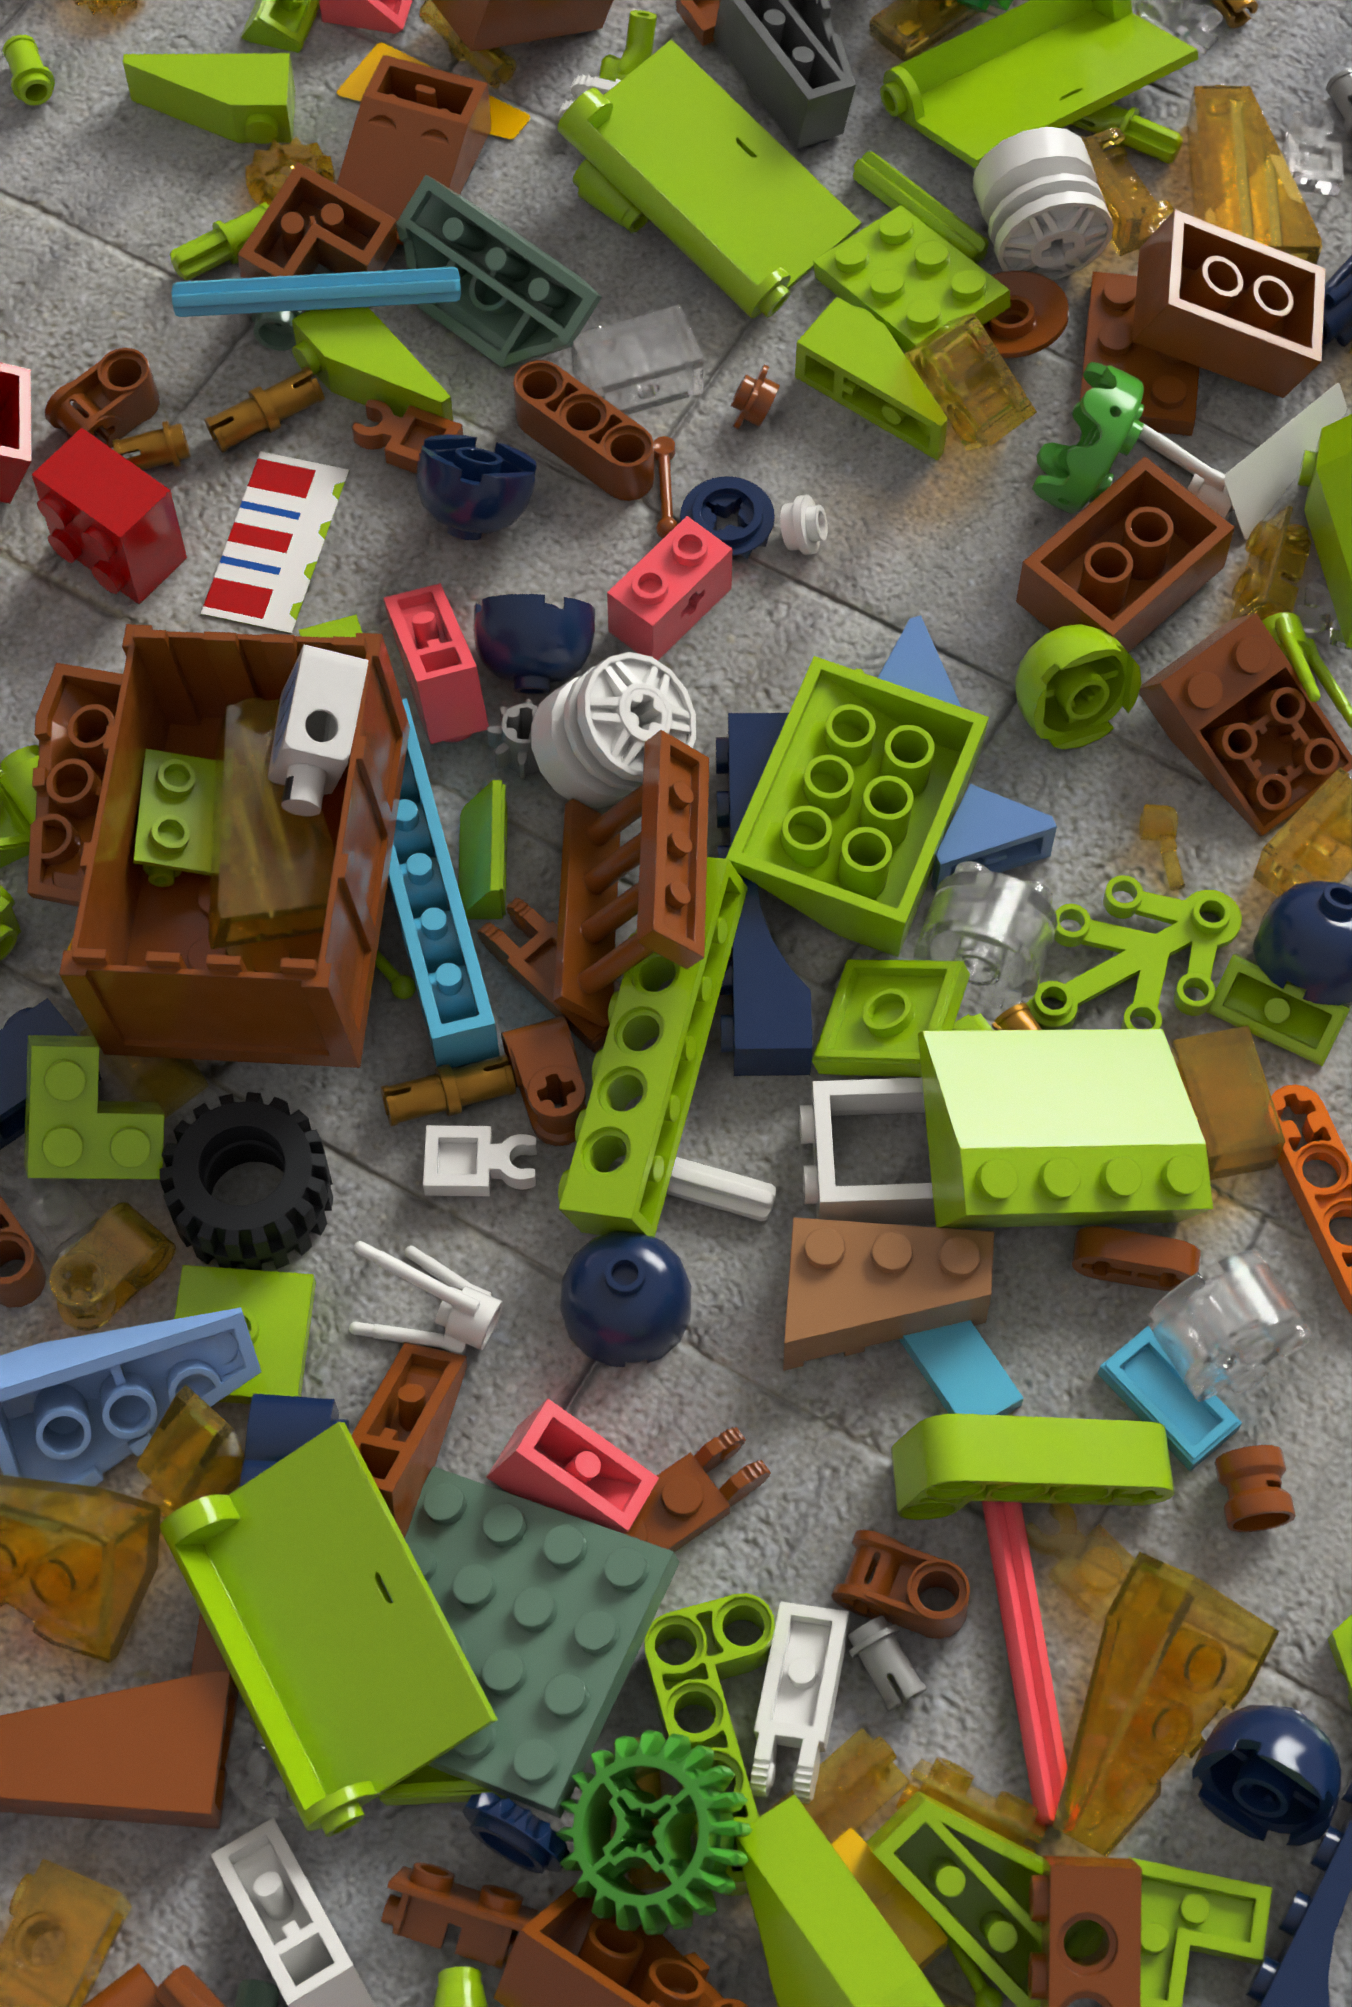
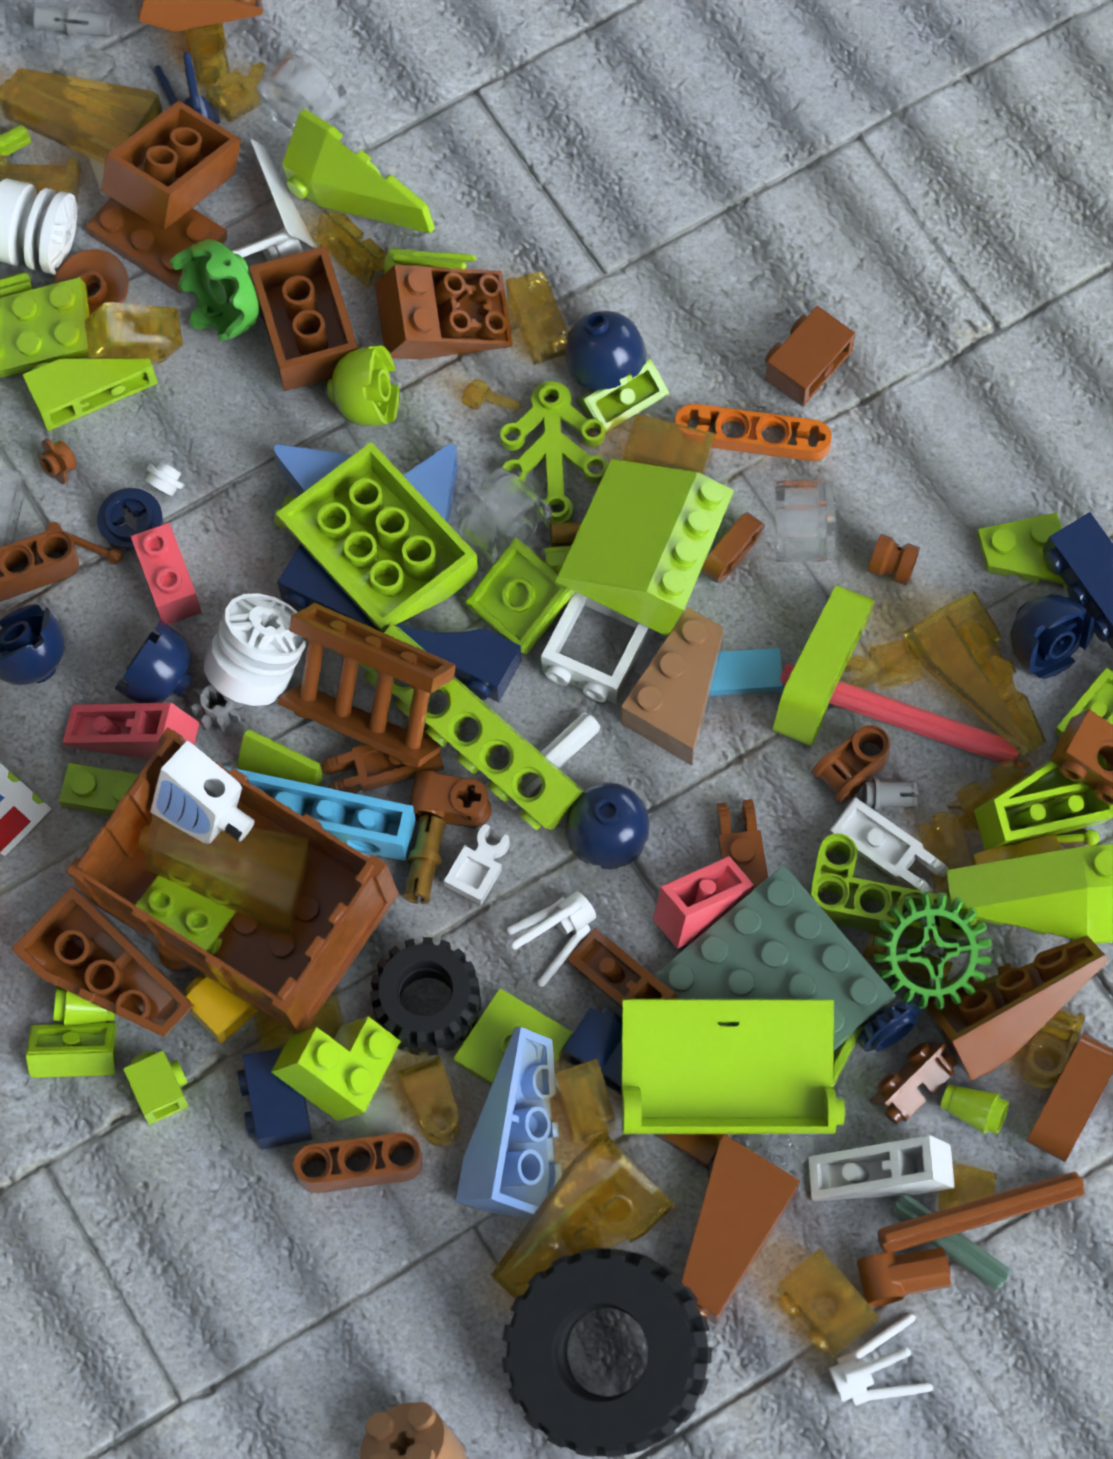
camera: 60 degrees left, 5 degrees up
(1156, 1393) = (816, 579): medium azure tile -> none

